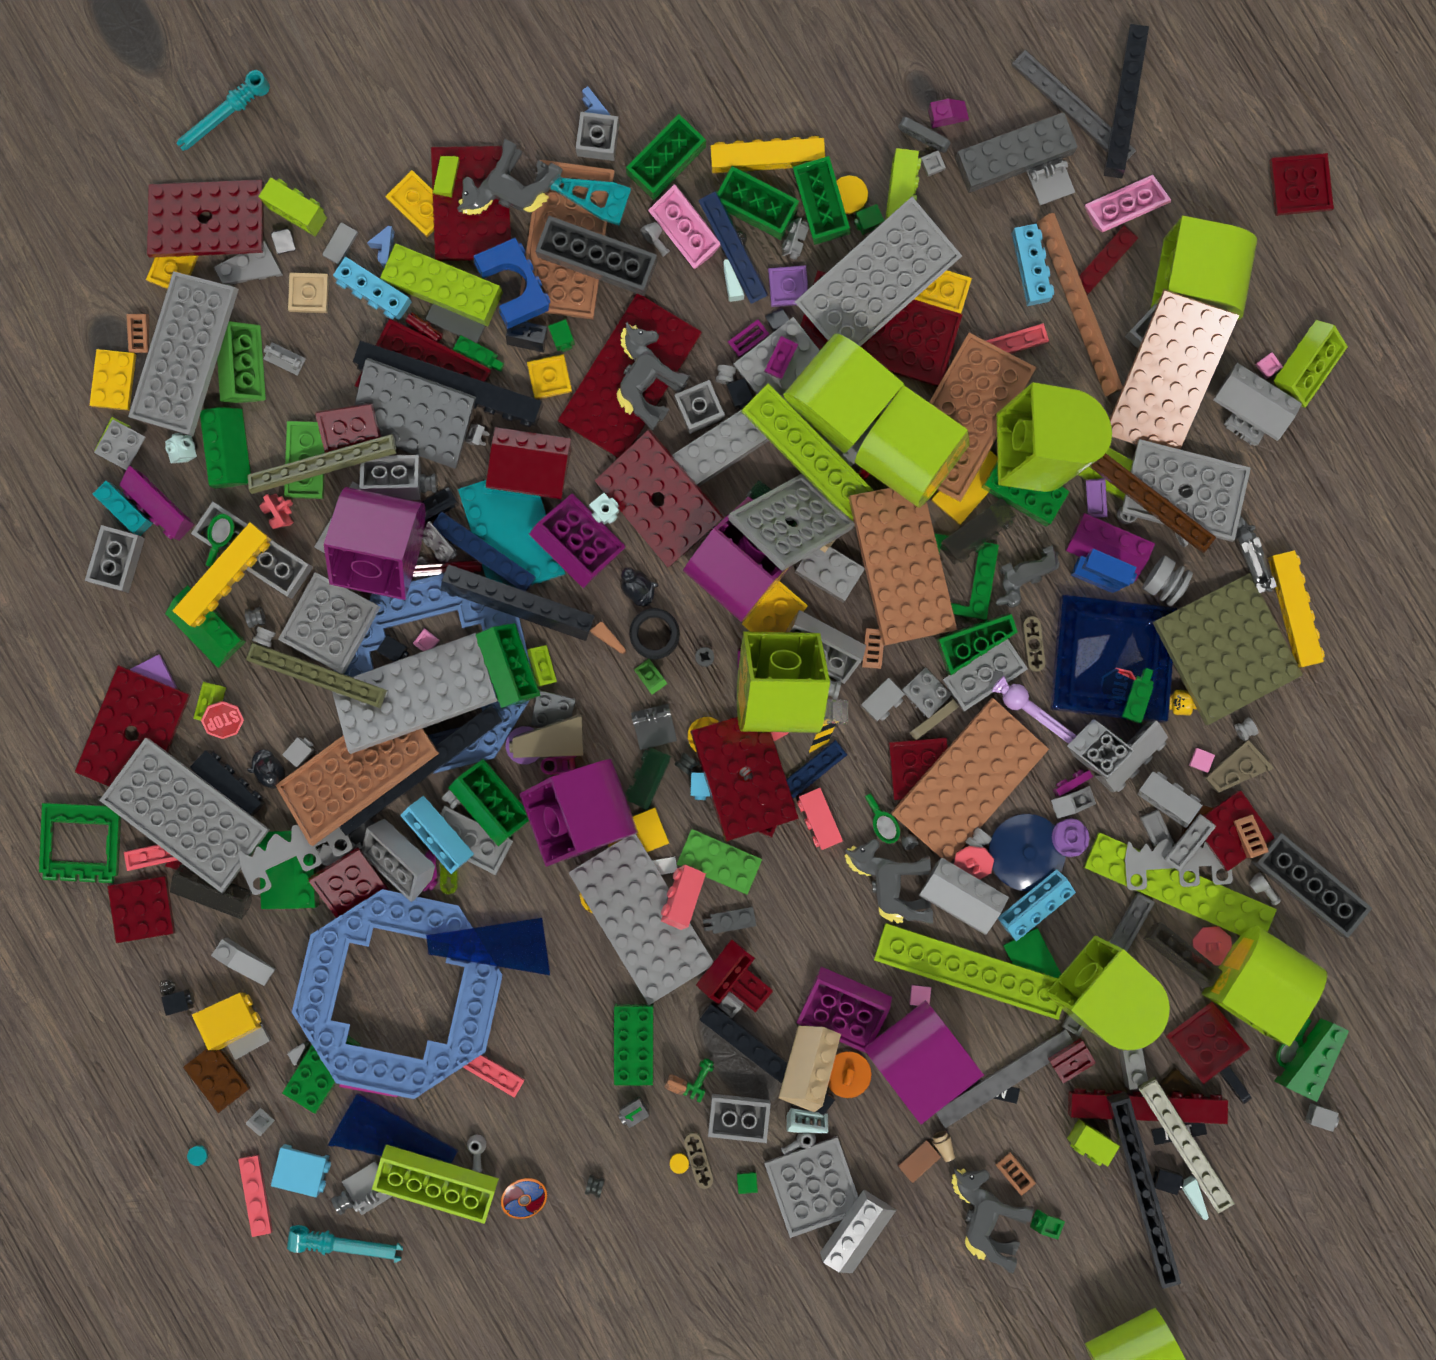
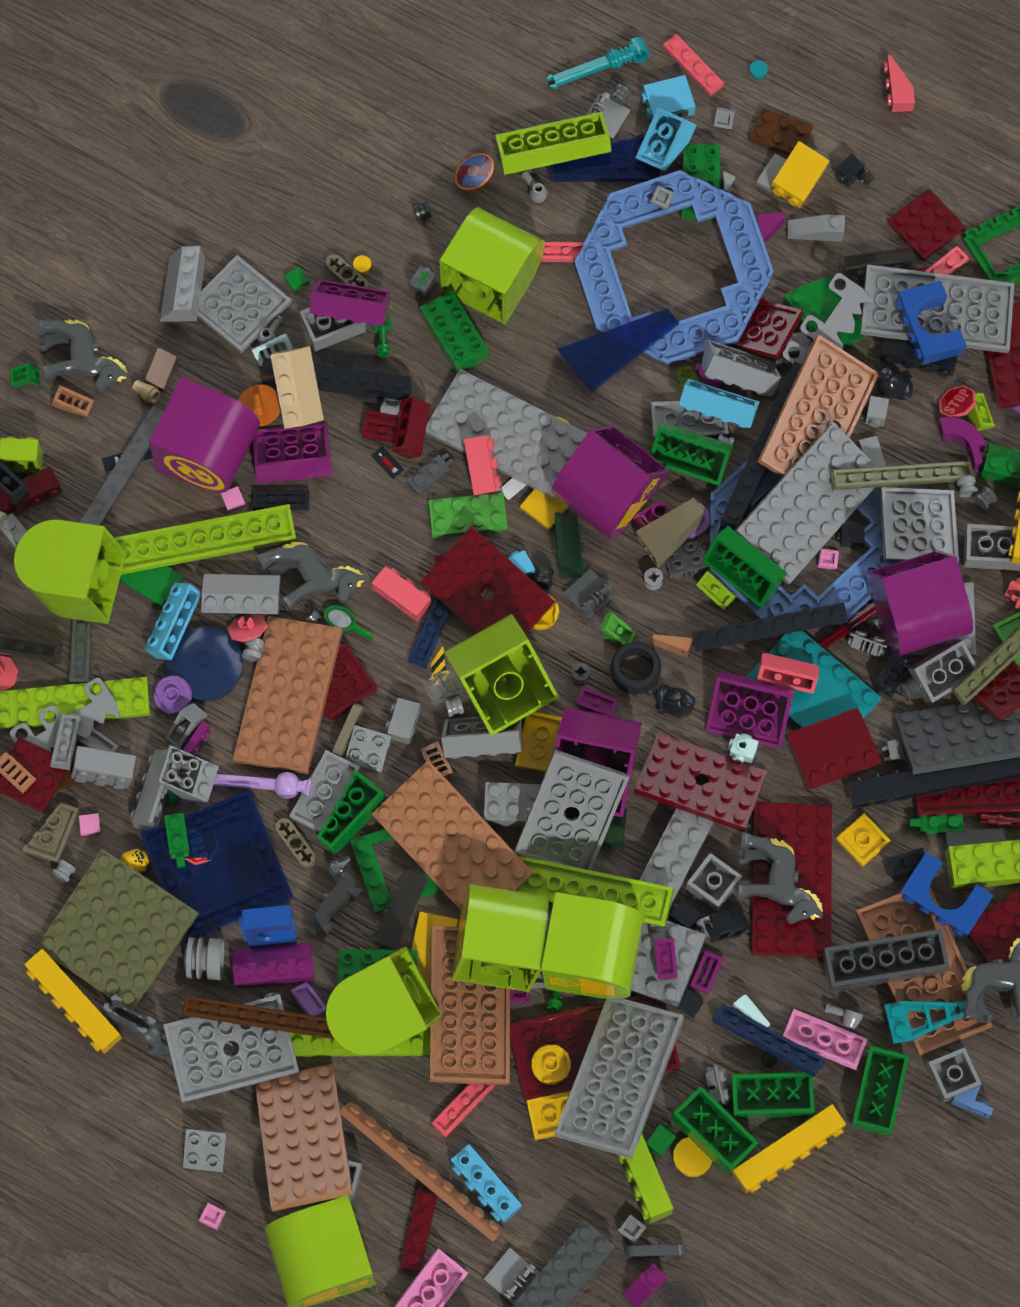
camera: 155 degrees right, 15 degrees down
(78, 1061) = (900, 89): none -> coral slope
(218, 779) = (927, 346): none -> blue arch
(234, 684) = (966, 434): none -> magenta arch
(284, 990) = (770, 224): none -> magenta slope
(327, 715) = (872, 449): none -> light grey tile
(329, 1127) = (665, 139): none -> medium azure slope
(369, 1064) = (662, 198): none -> light grey tile
(483, 552) = (828, 654): dark blue plate -> none
(527, 550) = (788, 673): none -> coral brick
(561, 336) = (873, 879): green brick -> none
(564, 1090) = (490, 264): none -> lime brick
(593, 709) = (650, 581): none -> light grey wheel
(676, 1084) = (400, 320): nougat slope -> none
(705, 623) = (596, 702): none -> magenta plate
(710, 363) = (727, 925): none -> black hinge
(716, 1123) = (349, 302): none -> magenta slope
(762, 953) = (387, 462): none -> black sticker
(787, 285) = (699, 1041): medium lavender tile -> none
(878, 971) = (267, 499): none -> black tile
(924, 330) = (551, 1064): none -> yellow tile
(1071, 1060) = (75, 509): dark red plate -> none
(1257, 401) = (207, 1168): light grey slope -> none
(1311, 362) = (174, 1237): lime slope -> none

